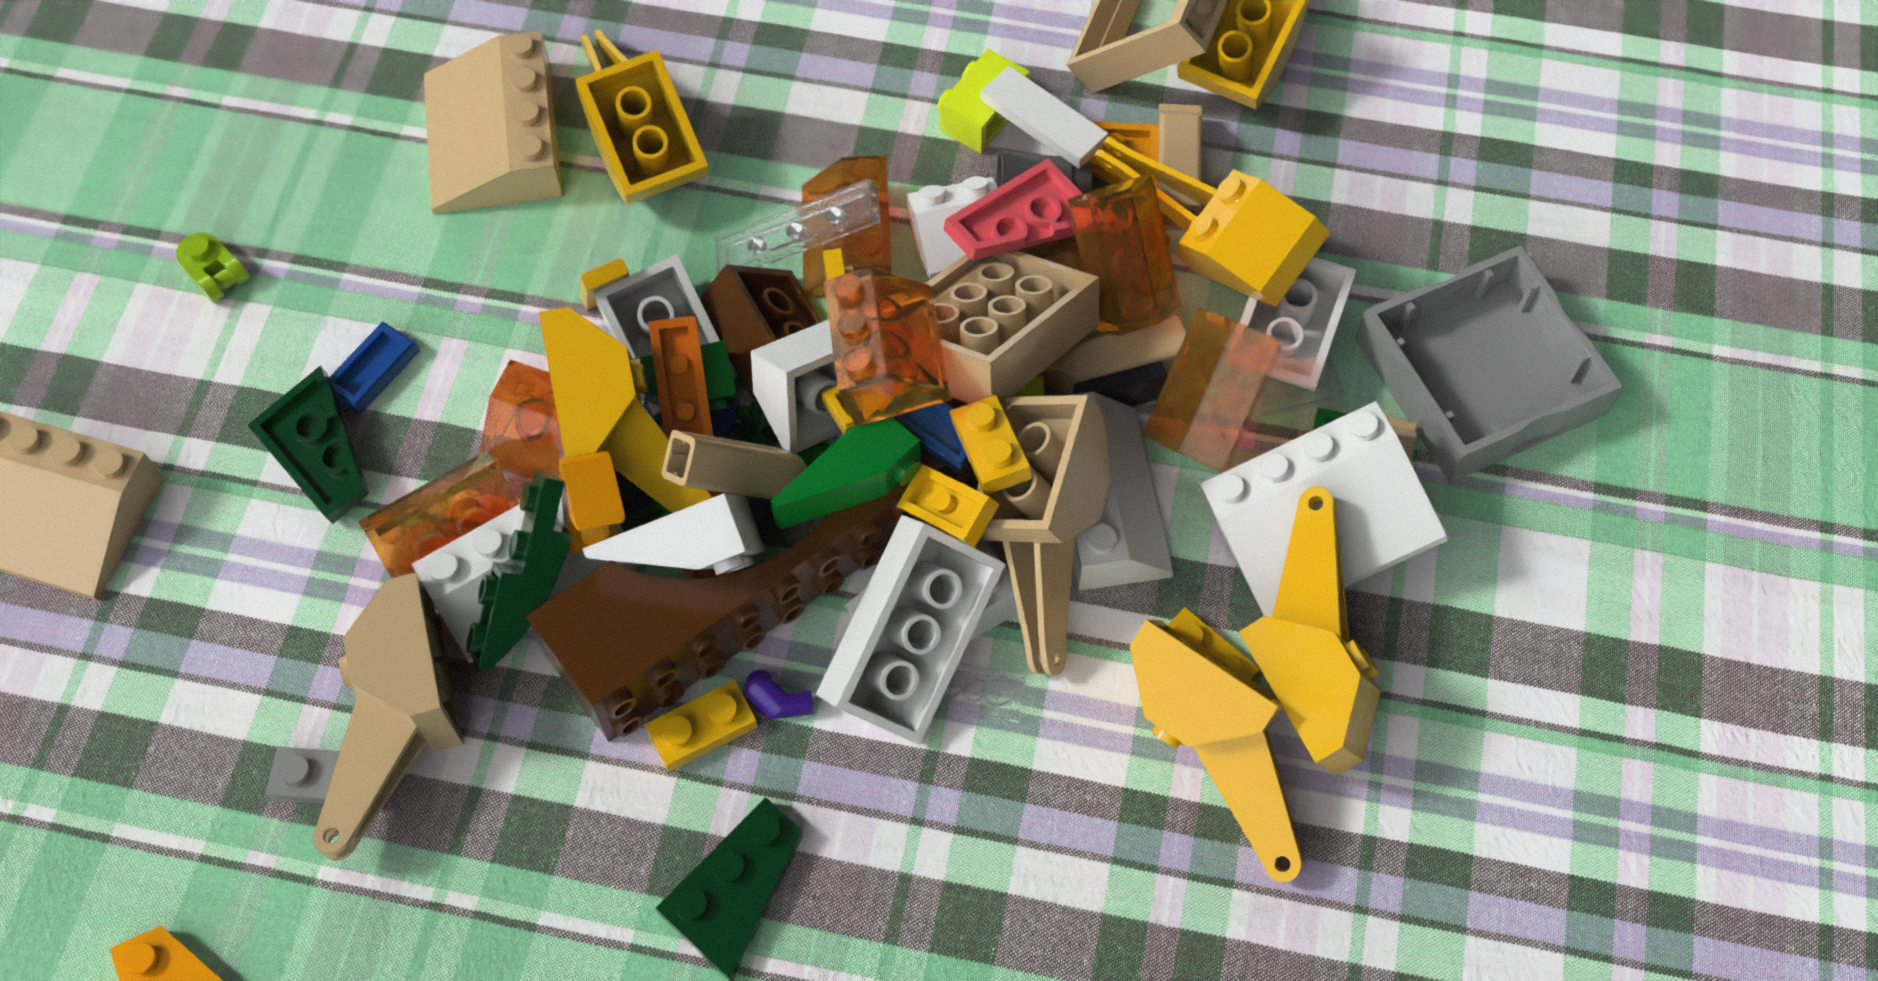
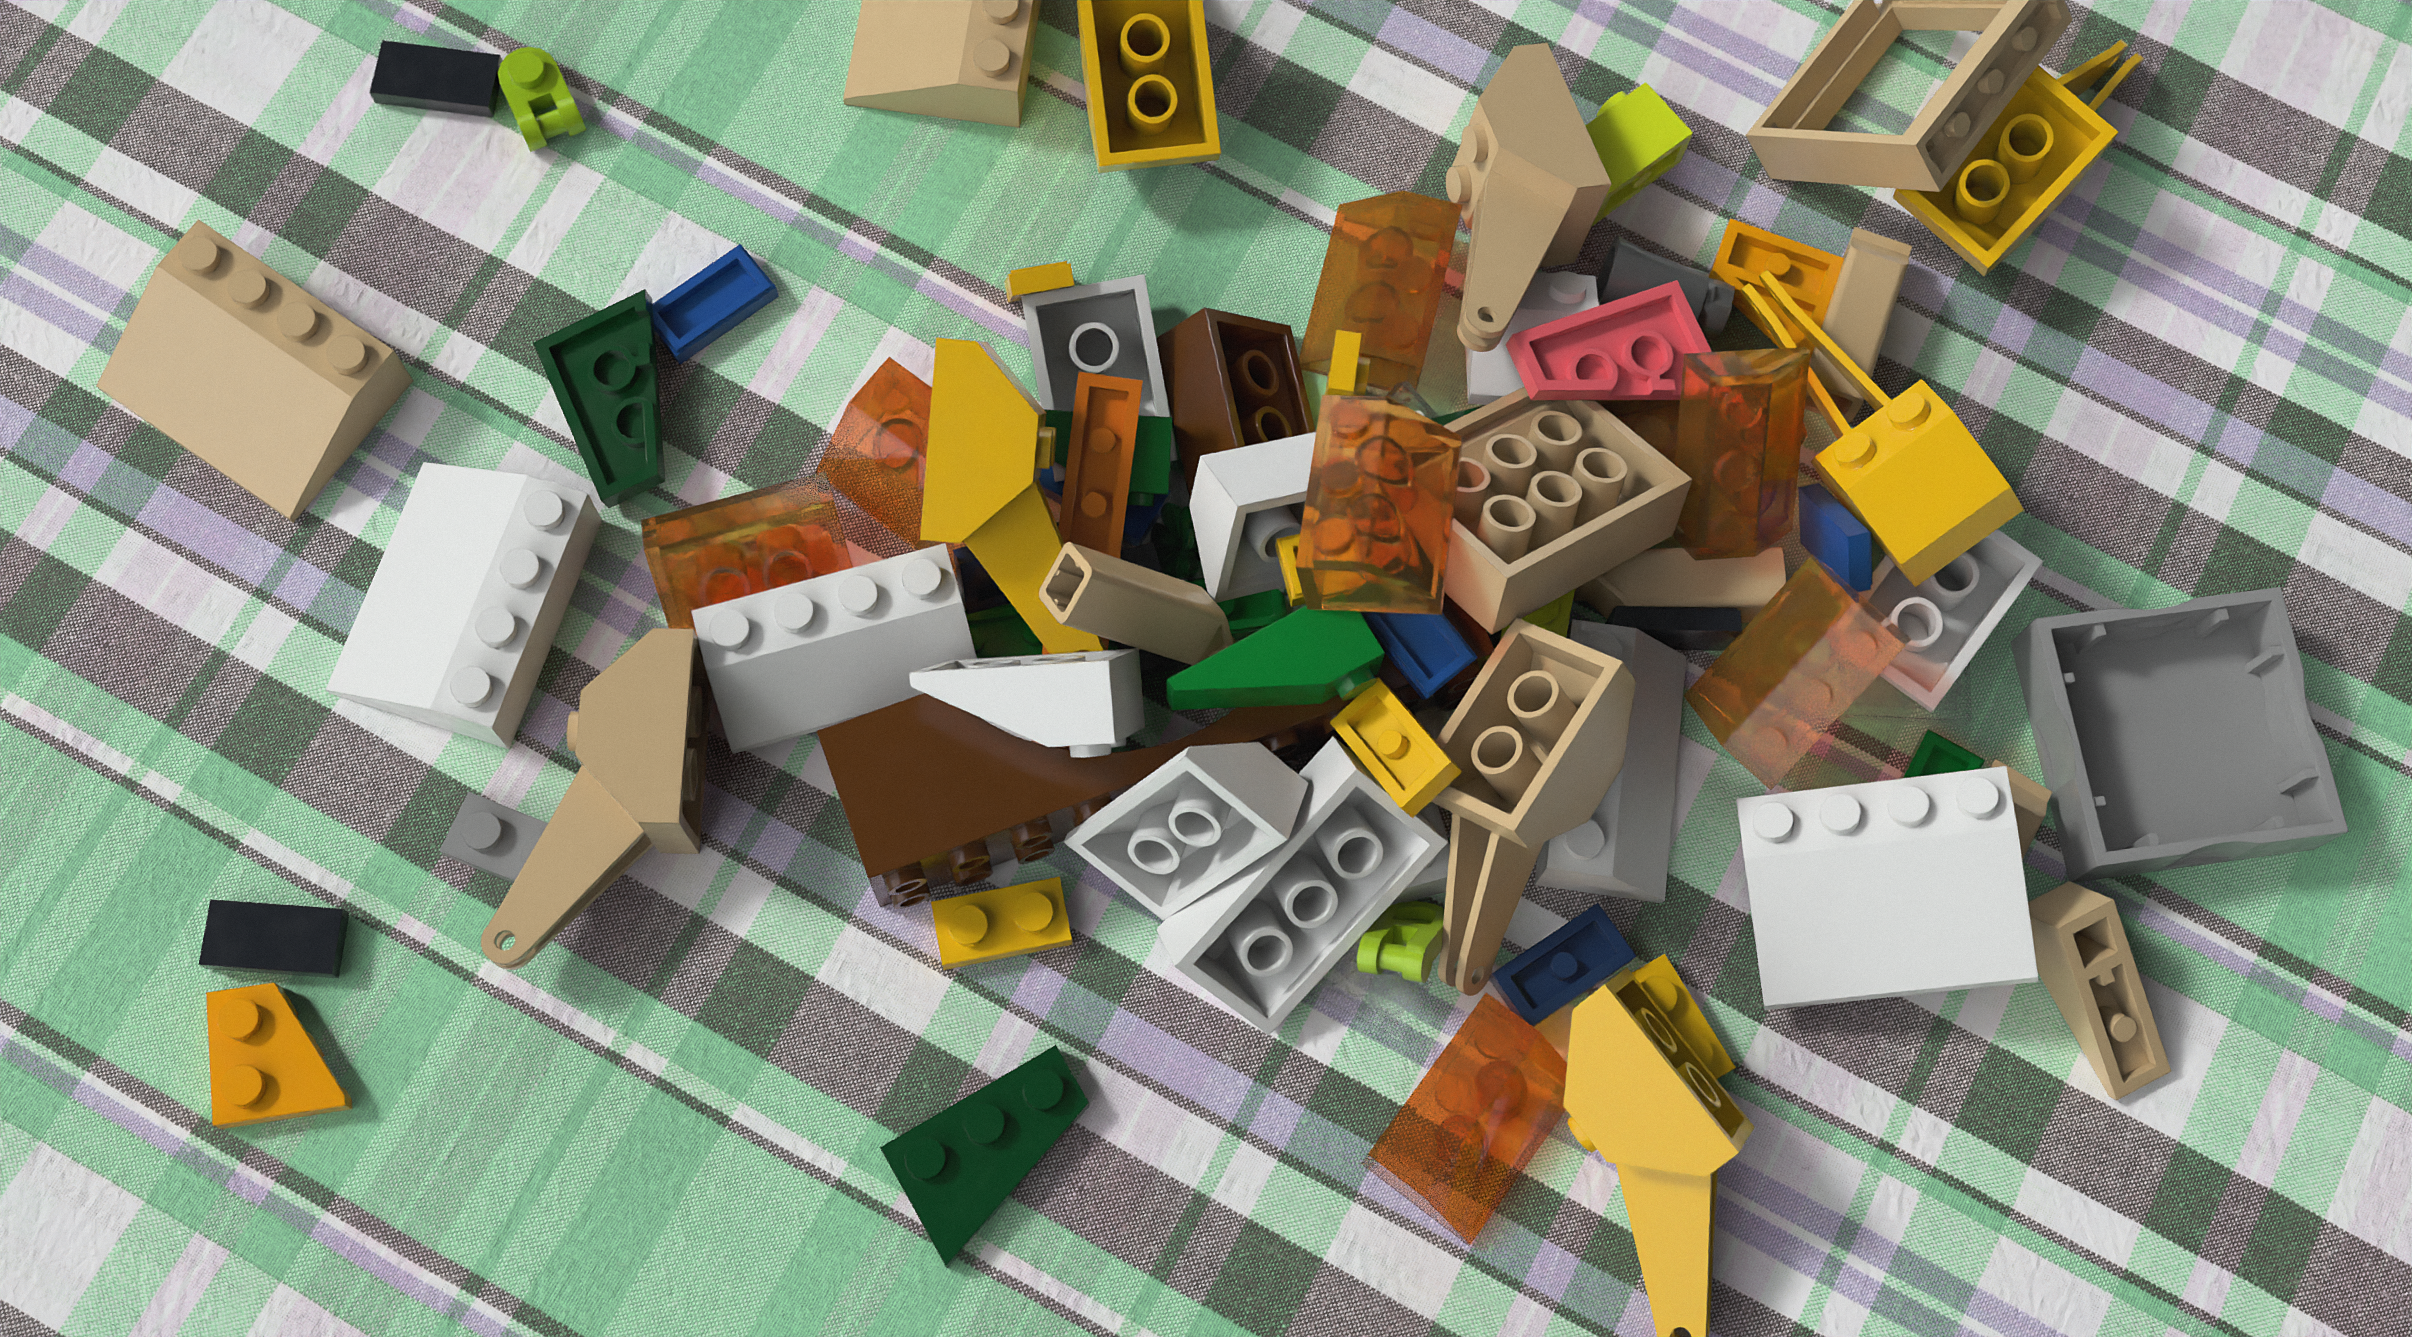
camera: 10 degrees right, 10 degrees up
(131, 273) = (436, 79): none -> black tile
(153, 895) = (274, 938): none -> black tile
(243, 614) = (467, 600): none -> white slope
(523, 587) = (825, 683): dark green slope -> none
(590, 499) = (938, 601): light orange slope -> none
(773, 700) = (1100, 918): dark purple arm -> none
(799, 227) = (1314, 277): clear tile -> none
(816, 602) = (1192, 823): none -> white slope
(925, 129) = (1524, 188): none -> tan slope
(990, 445) = (1475, 686): yellow plate -> none
(995, 648) = (1403, 940): none -> lime plate
(1044, 117) = (1691, 210): white tile -> none
(1084, 759) = (1473, 1120): none -> clear orange slope
(1105, 644) = (1562, 966): none -> dark blue plate
(1211, 293) = (1835, 536): none -> blue tile
(1306, 643) = (1800, 1075): yellow slope -> none
(1492, 541) = (2097, 986): none -> tan slope

